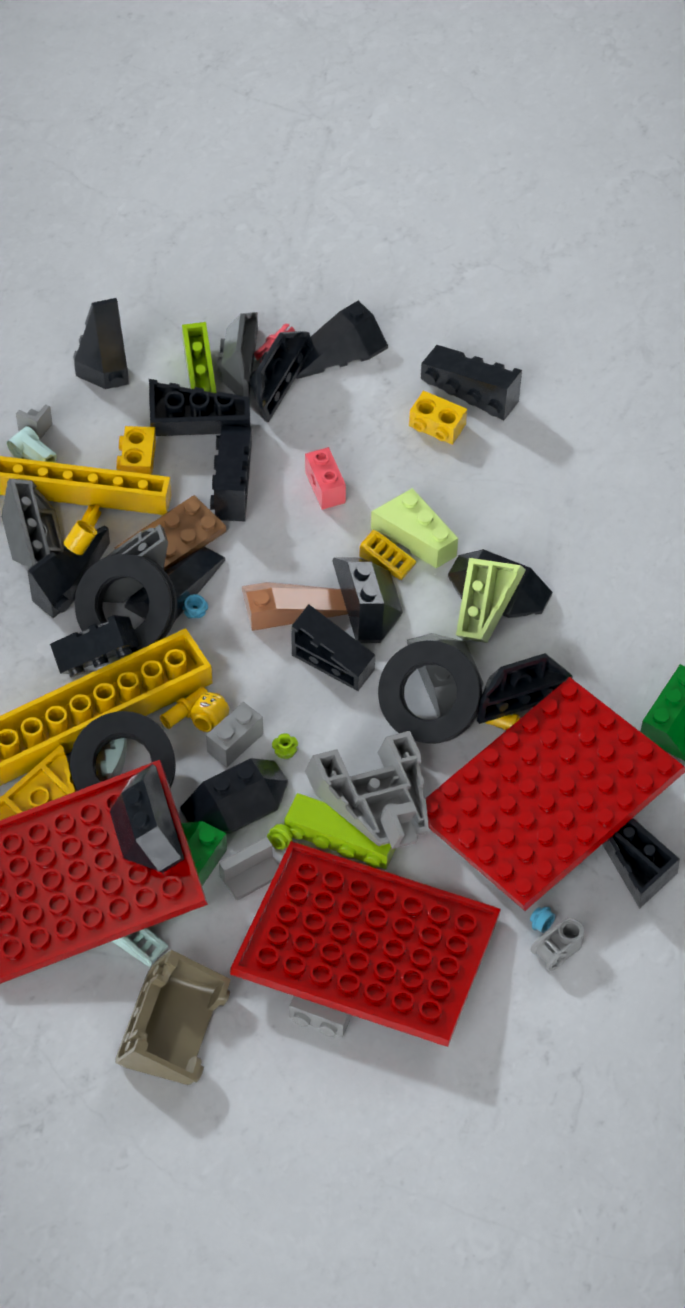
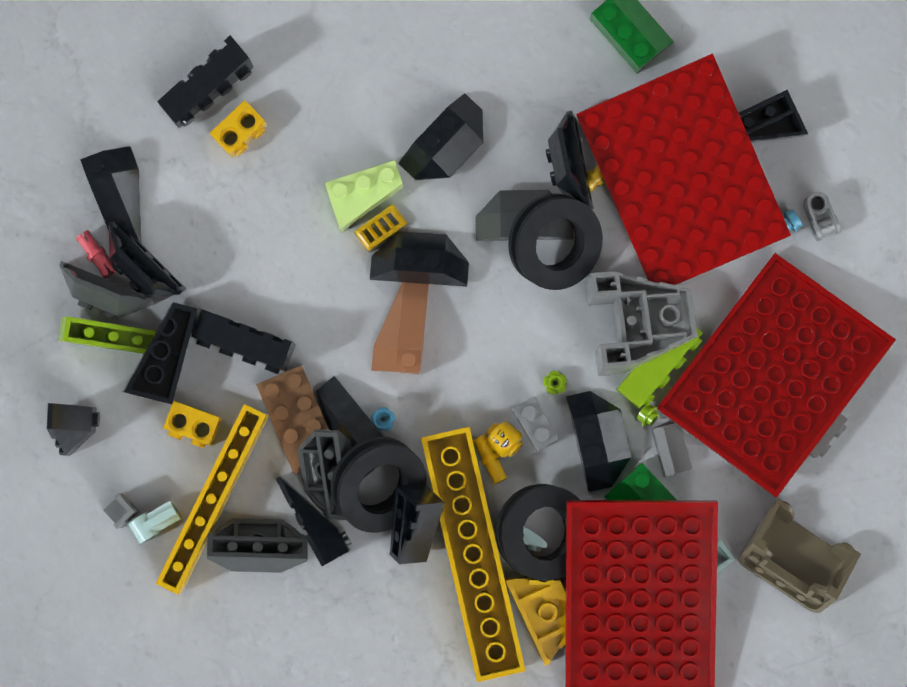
camera: 70 degrees left, 30 degrees up
(83, 531) = (295, 505): yellow axle -> none
(145, 823) = (627, 532): black wedge -> none
(325, 478) = (278, 257): coral brick -> none
(330, 649) = (475, 310): black wedge -> none
(398, 824) = (688, 314): light grey panel -> none
(485, 597) = (469, 156): yellowish green wedge -> none

